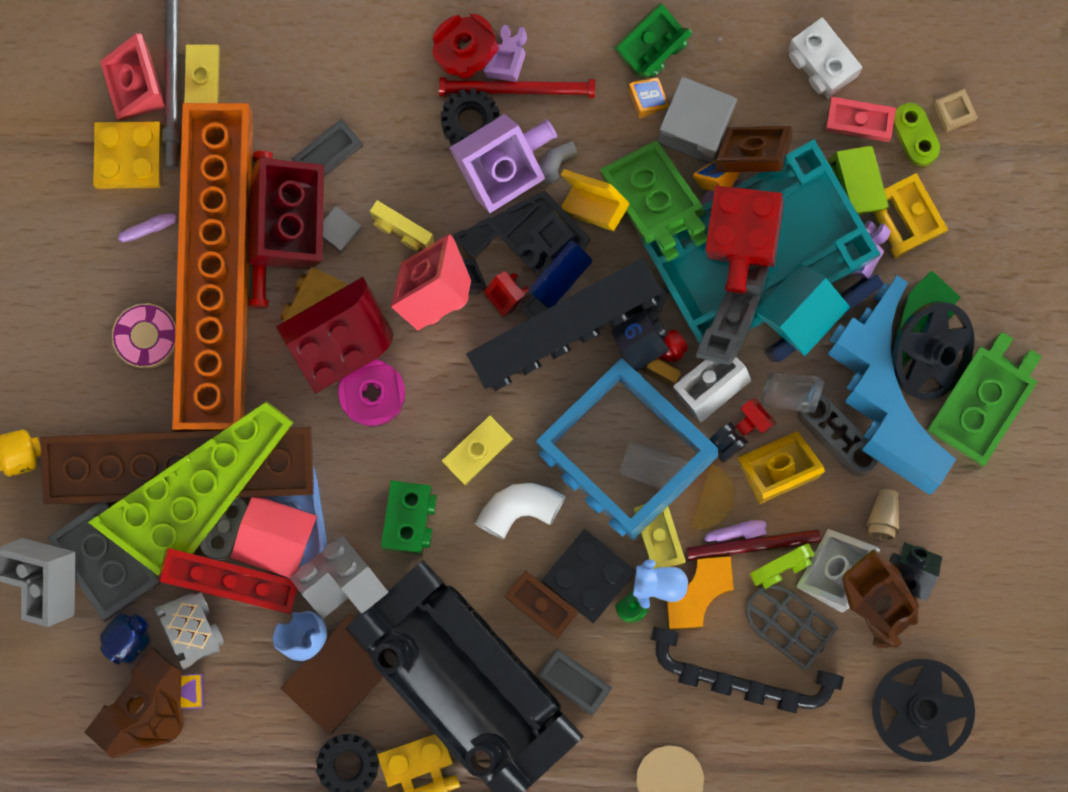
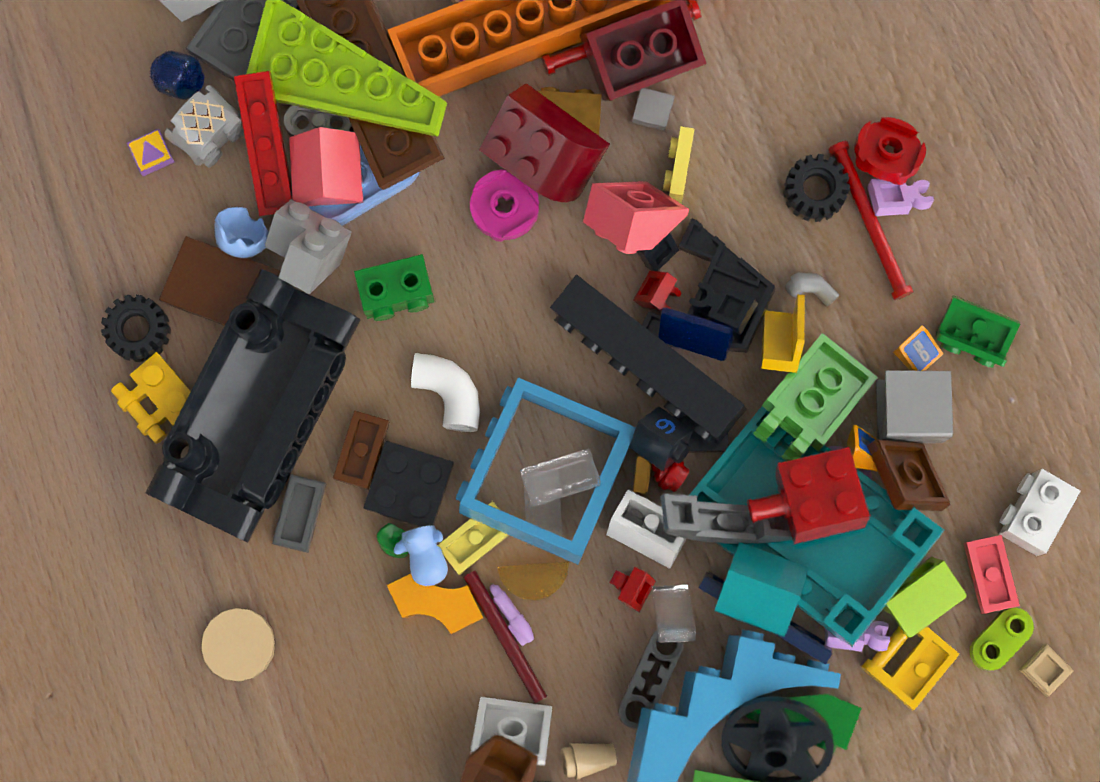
camera: 70 degrees right, 0 degrees up
(160, 720) = (111, 134): reddish brown piece -> none
(331, 147) = (728, 68): dark grey tile -> none
(477, 450) = (489, 328): light yellow plate -> none
(501, 160) = (785, 229): lavender brick -> none
(641, 438) = (560, 477): none -> clear tile
(728, 442) = (596, 568): black wheel -> none
(754, 691) = (358, 694): black bar -> none
(770, 573) = (481, 664): lime plate -> none
(770, 621) = (445, 717): dark grey window -> none
(780, 467) = (594, 631): yellow slope -> none

